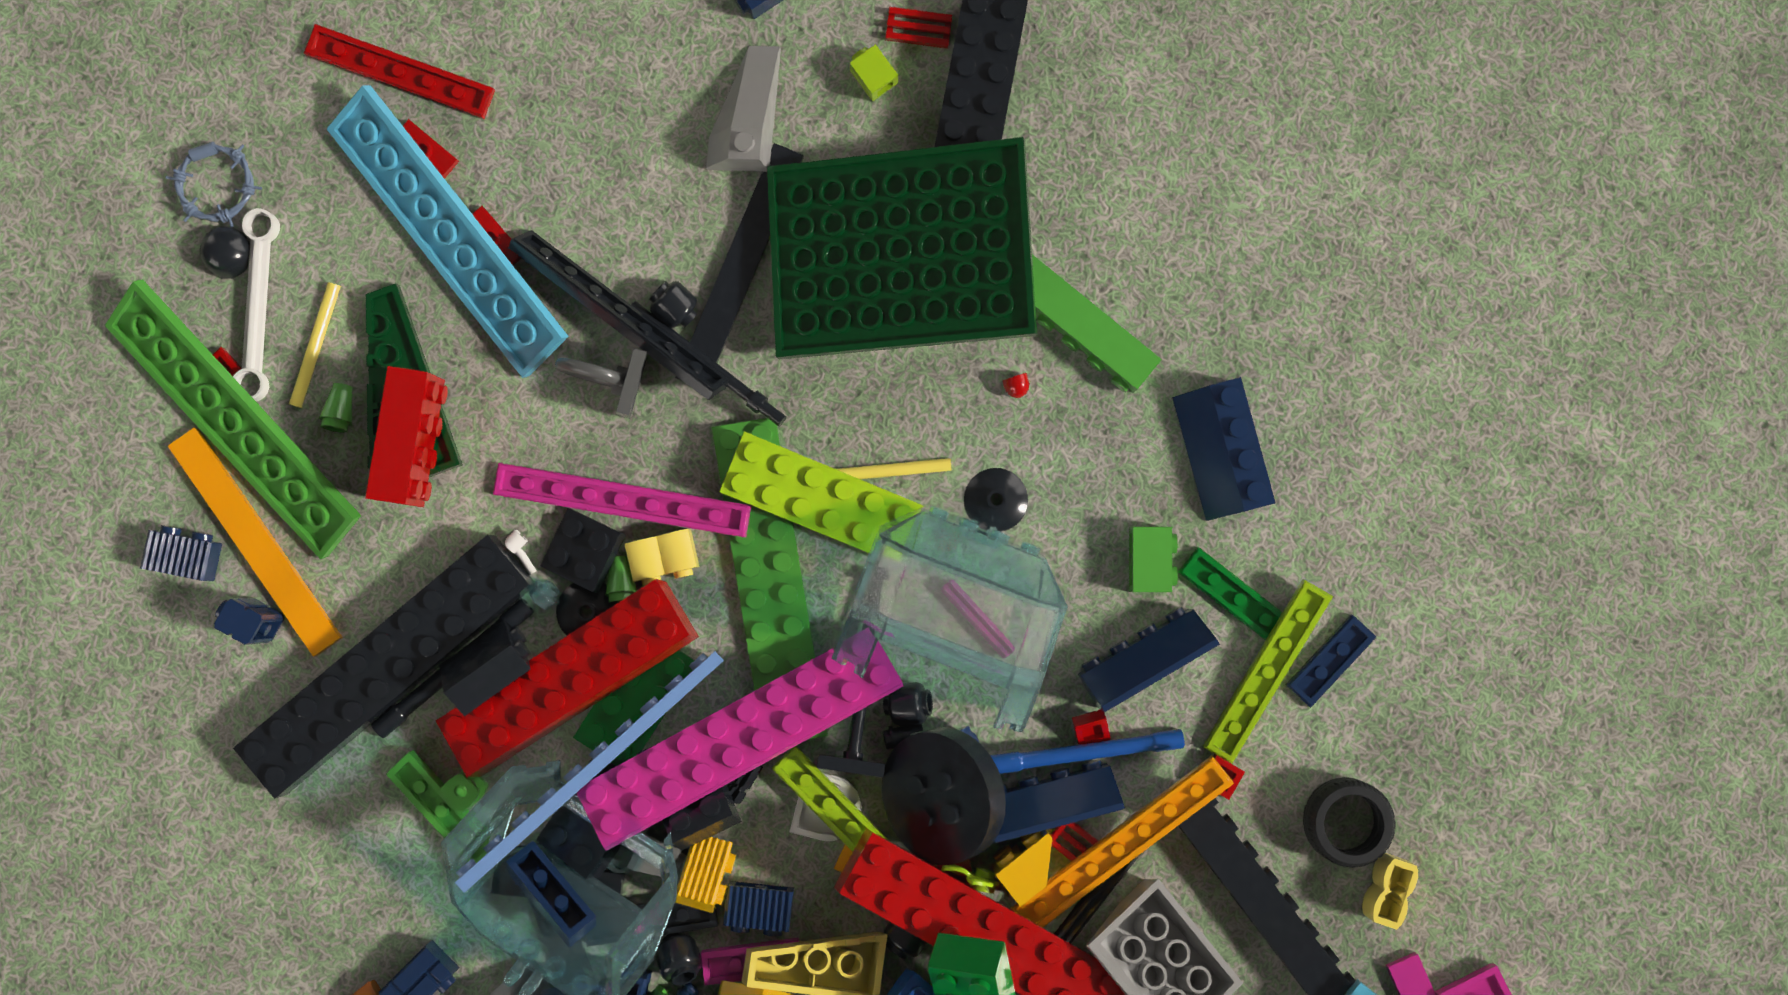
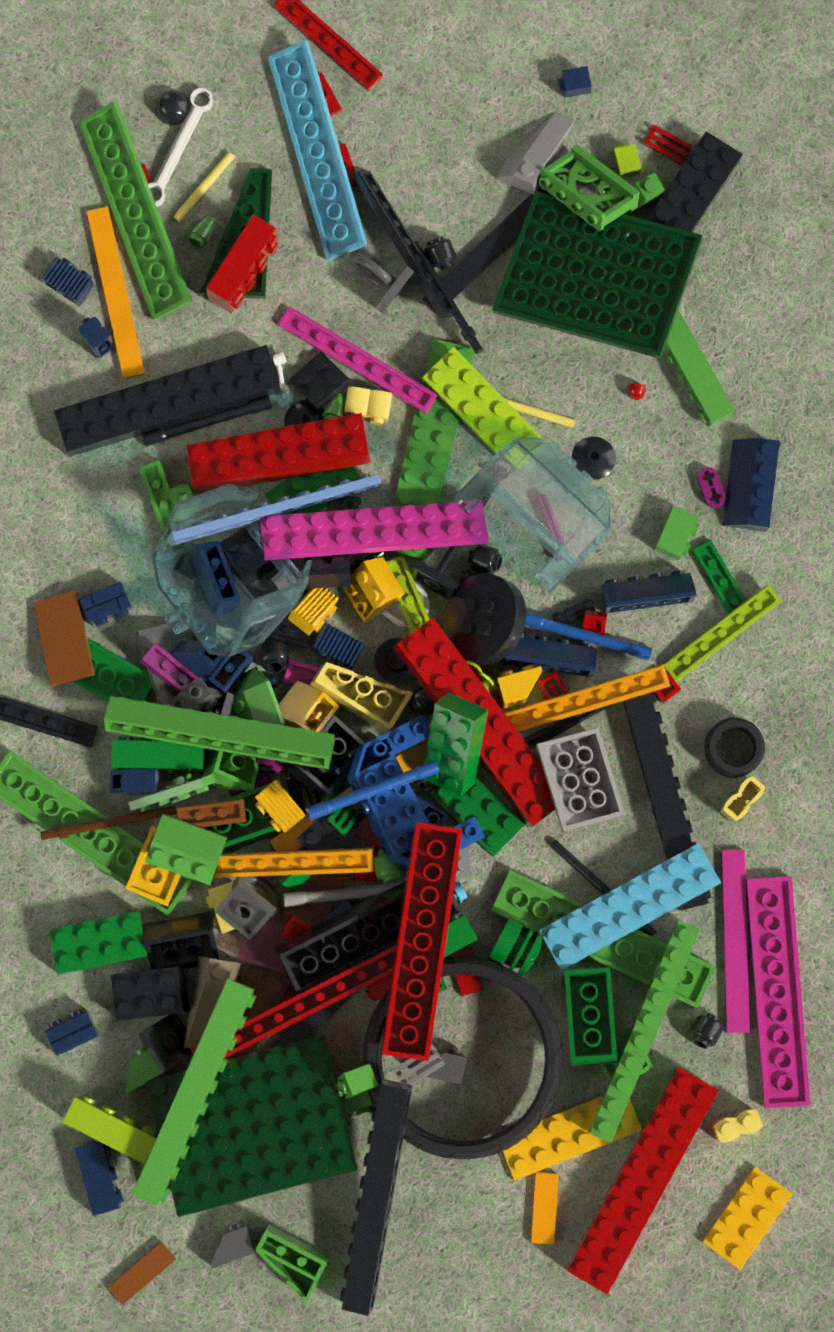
camera: 20 degrees right, 5 degrees down
(204, 151) = (188, 40): sand blue piece -> none
(485, 667) = (232, 424): black brick -> none
(702, 709) = (355, 502): none -> dark green plate
(774, 809) = (373, 588): none -> yellow slope
(831, 903) = (385, 663): none -> black dish
(838, 106) = (588, 170): none -> bright green fence
(912, 112) = (650, 192): none -> bright green slope
(1056, 724) = (574, 612): none -> black axle
(1176, 470) = (716, 485): none -> magenta beam
(1331, 660) = (765, 645): dark blue tile -> none

